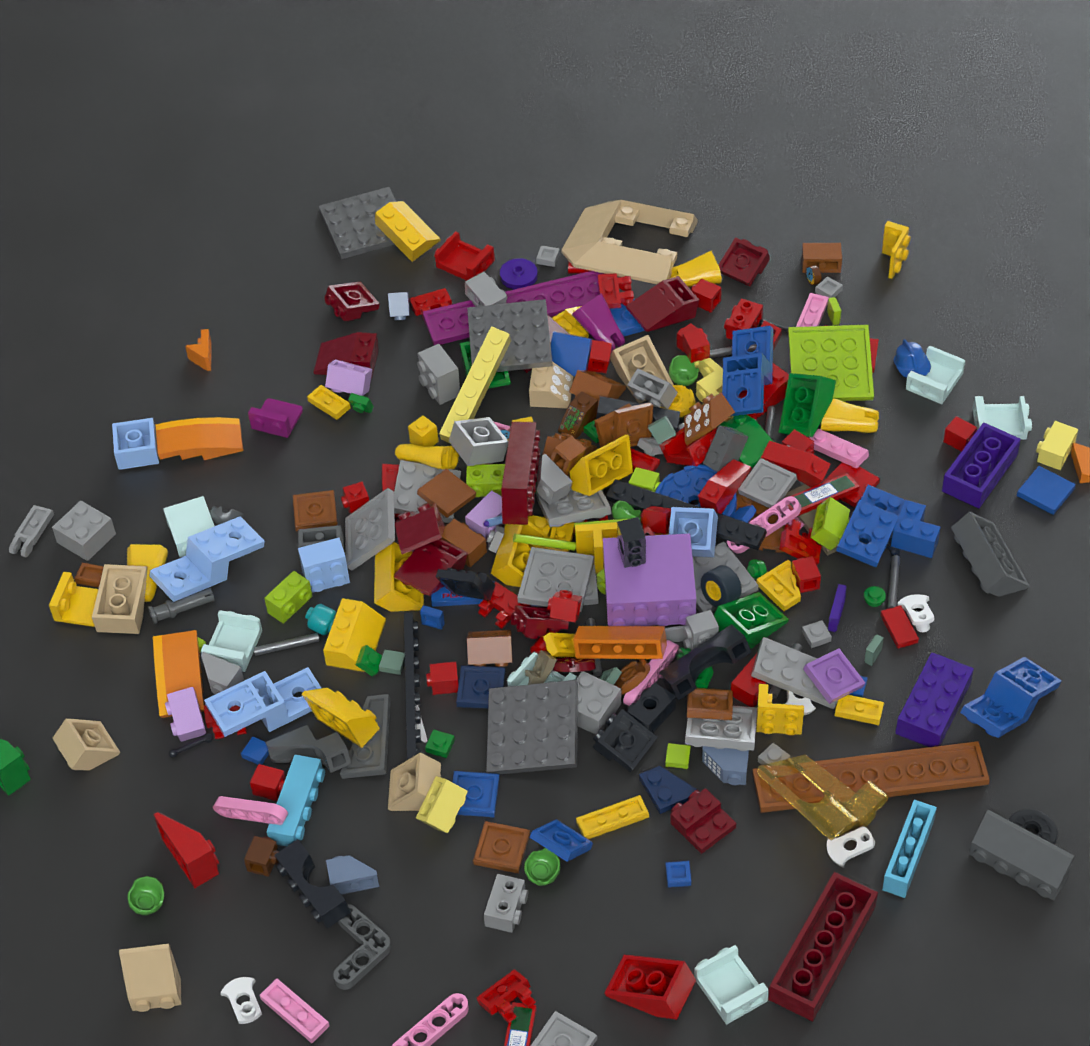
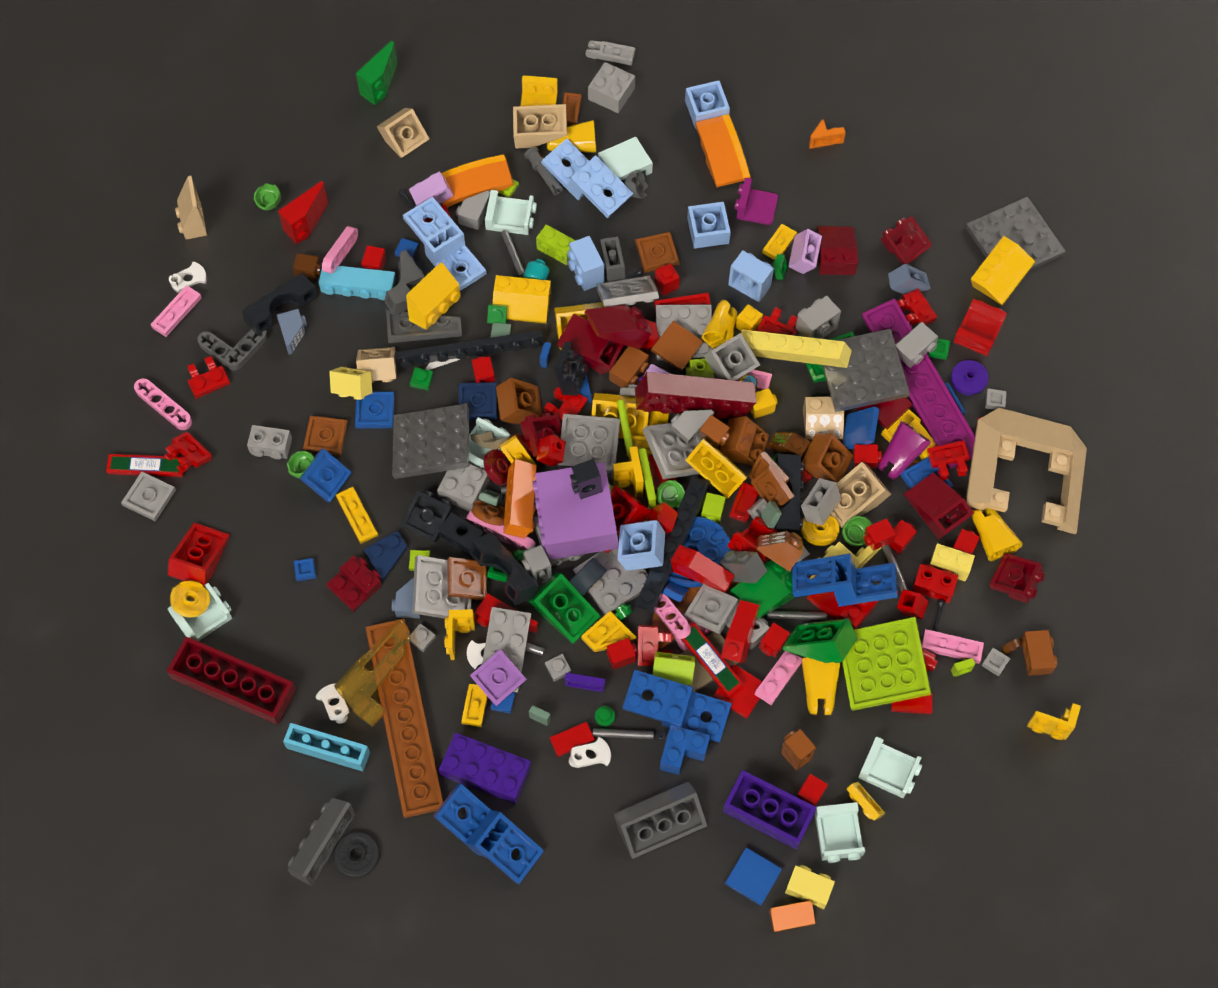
camera: 80 degrees right, 15 degrees up
(296, 455) = (708, 225): none -> light blue brick
(371, 423) = (750, 276): none -> light blue brick
(405, 974) = (209, 381): none -> red plate
(437, 410) = (772, 324): none -> red plate
(714, 989) = (193, 591): none -> yellow plate
(722, 305) = (953, 560): none -> light yellow brick
(911, 358) = (905, 745): blue piece -> none
(920, 434) = (798, 749): none -> dark orange brick
(963, 400) = (861, 796): none -> yellow plate

